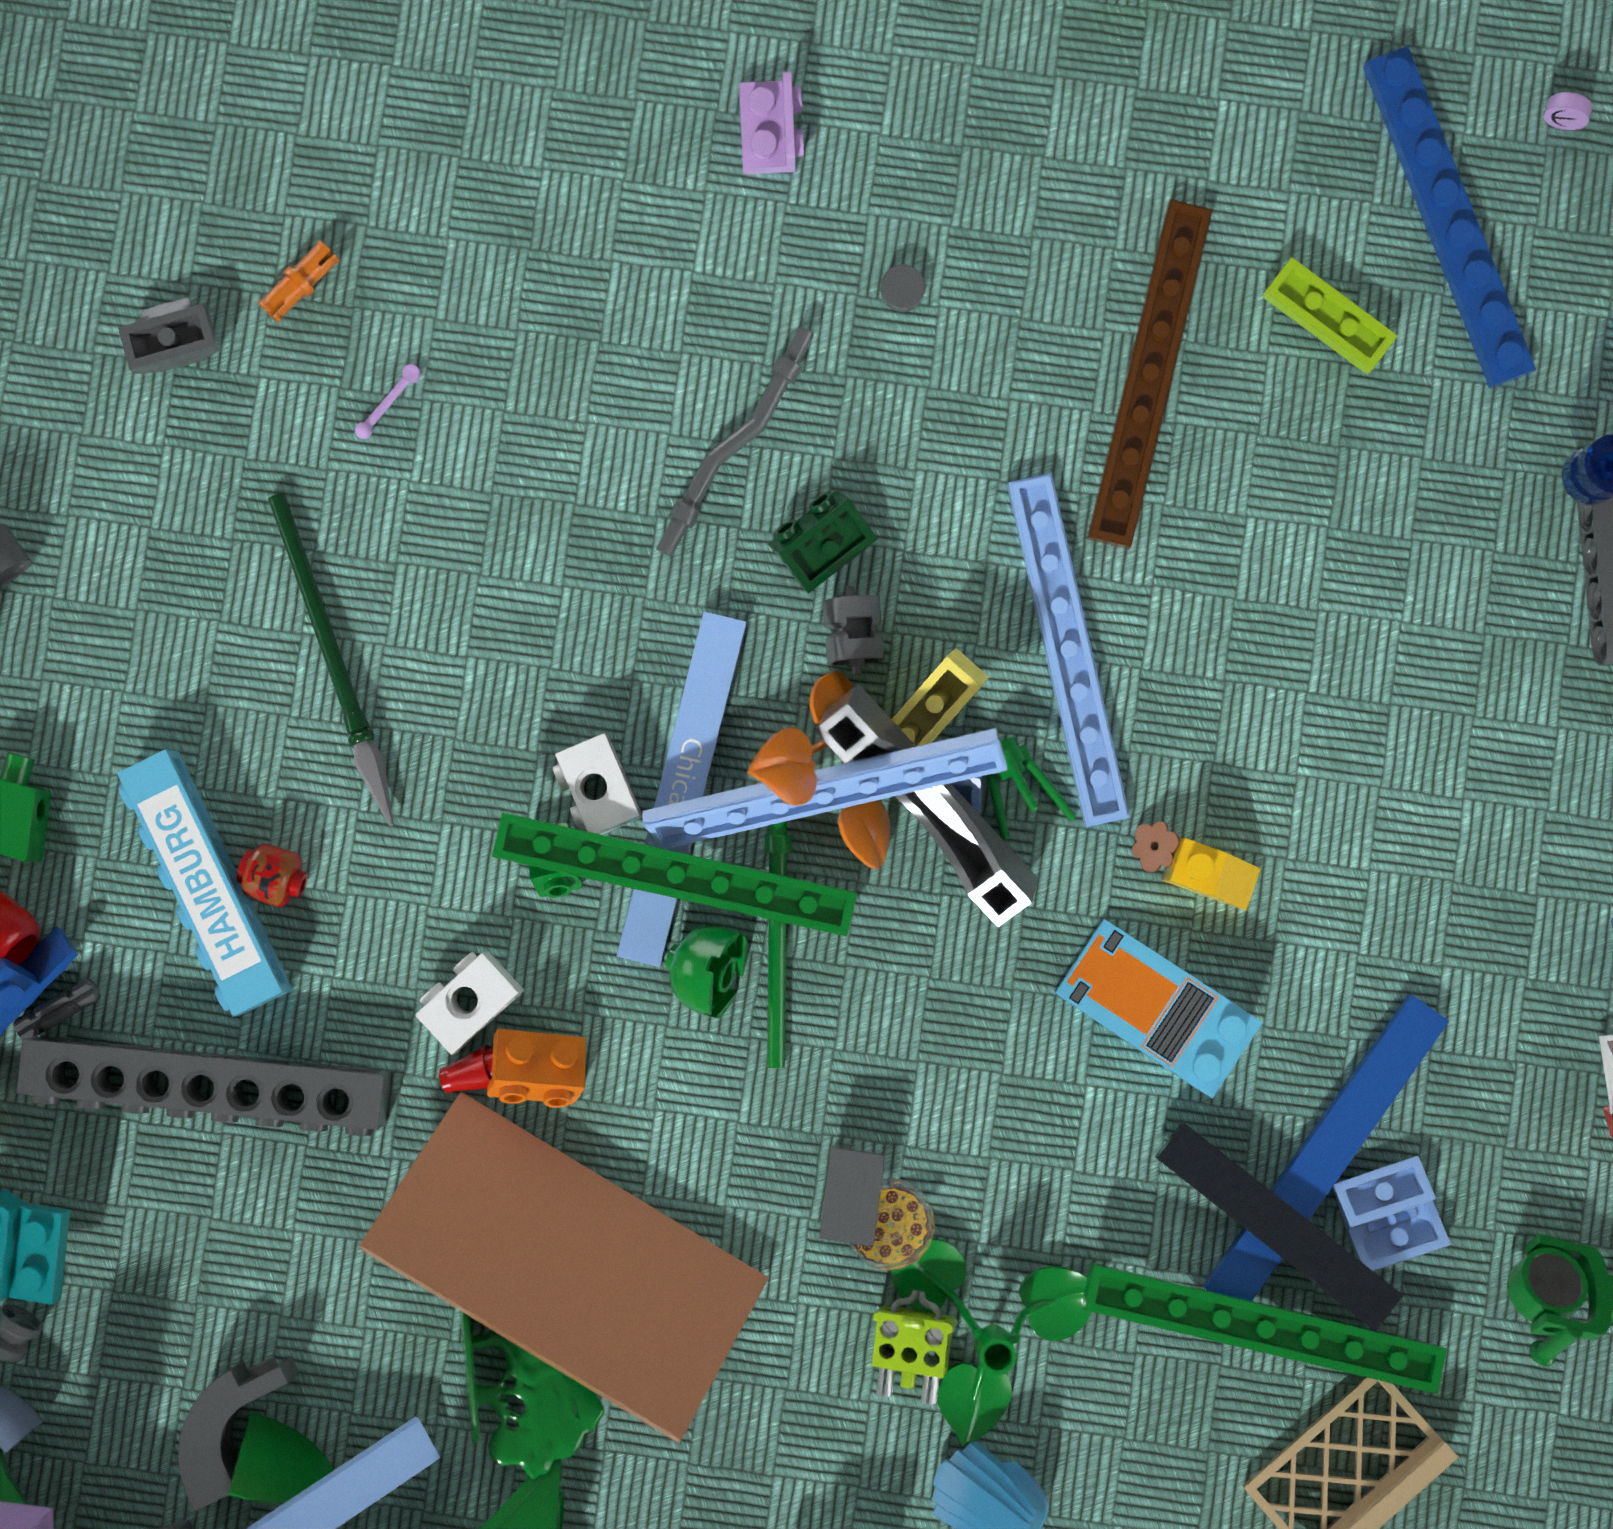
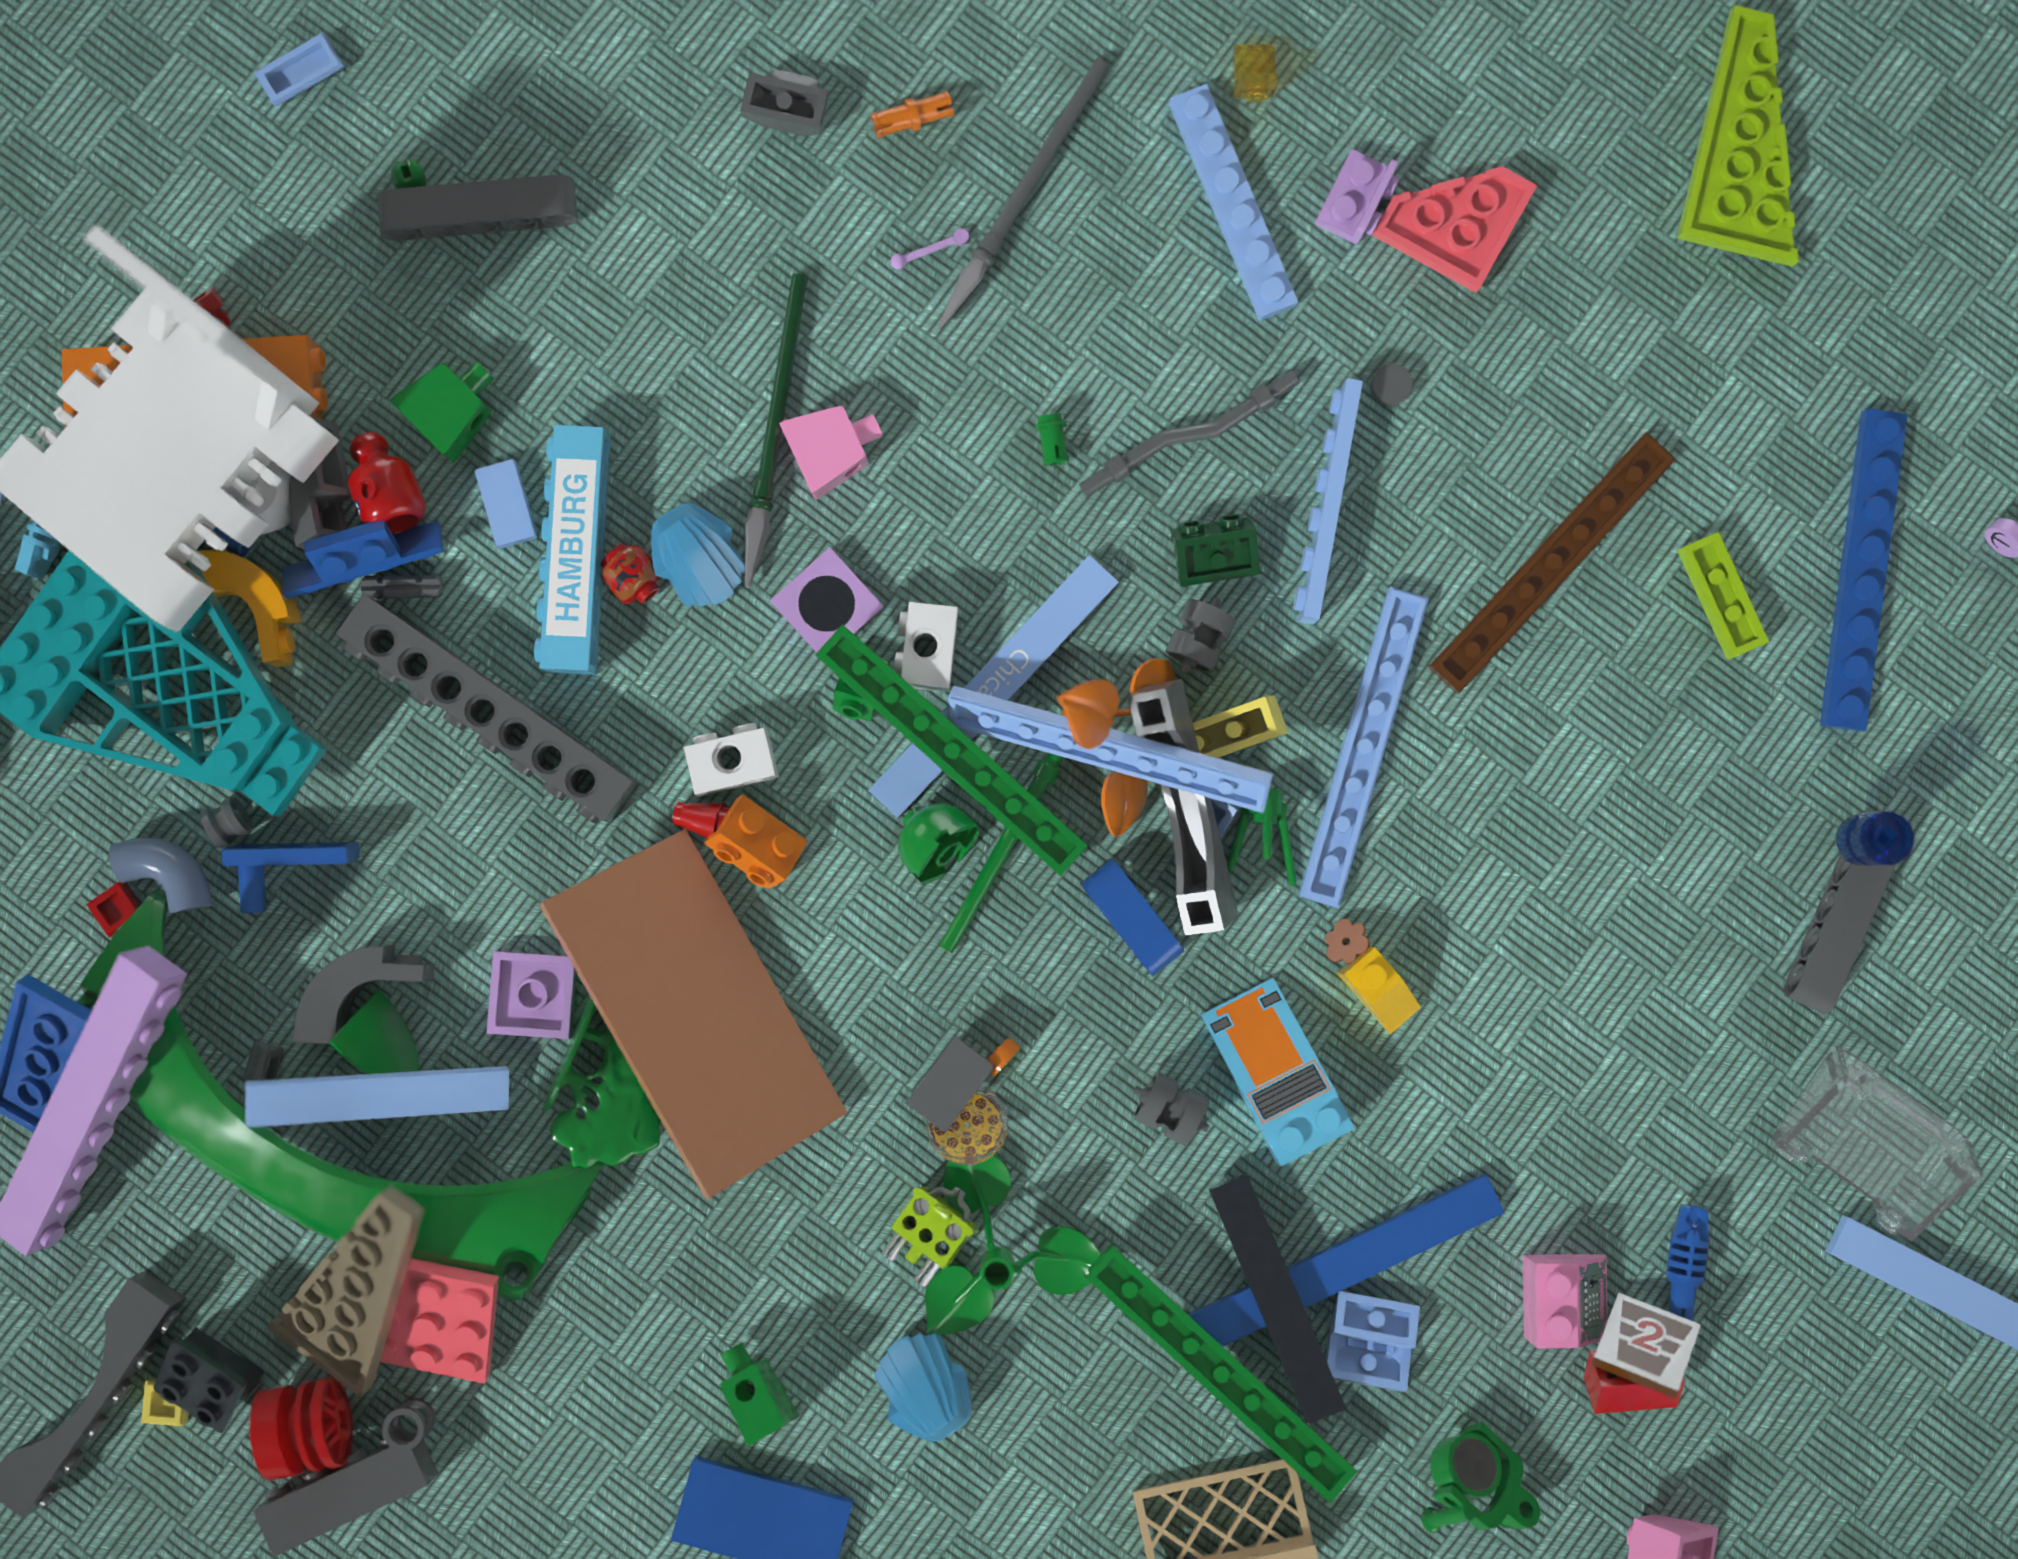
camera: 20 degrees right, 0 degrees up
(57, 1352) = (253, 857): none -> blue piece
(113, 873) = (506, 504): none -> light blue tile
(325, 822) = (696, 555): none -> dark azure hair
(395, 646) = (829, 446): none -> bright pink torso
(401, 1335) = (531, 995): none -> lavender tile
(443, 360) = (991, 243): none -> dark grey piece
(473, 794) = (825, 599): none -> tile
(605, 60) = (1254, 72): none -> clear yellow bracket
(606, 519) = (1052, 439): none -> green pin
(654, 196) = (1233, 202): none -> light blue plate
(880, 99) = (1457, 223): none -> coral plate
(887, 1139) = (1003, 1055): none -> orange tile
(897, 416) = (1330, 483): none -> light blue plate
(937, 937) = (1132, 917): none -> blue beam
(1077, 1100) = (1174, 1110): none -> dark grey wheel
(1552, 1072) = (1564, 1299): none -> bright pink slope

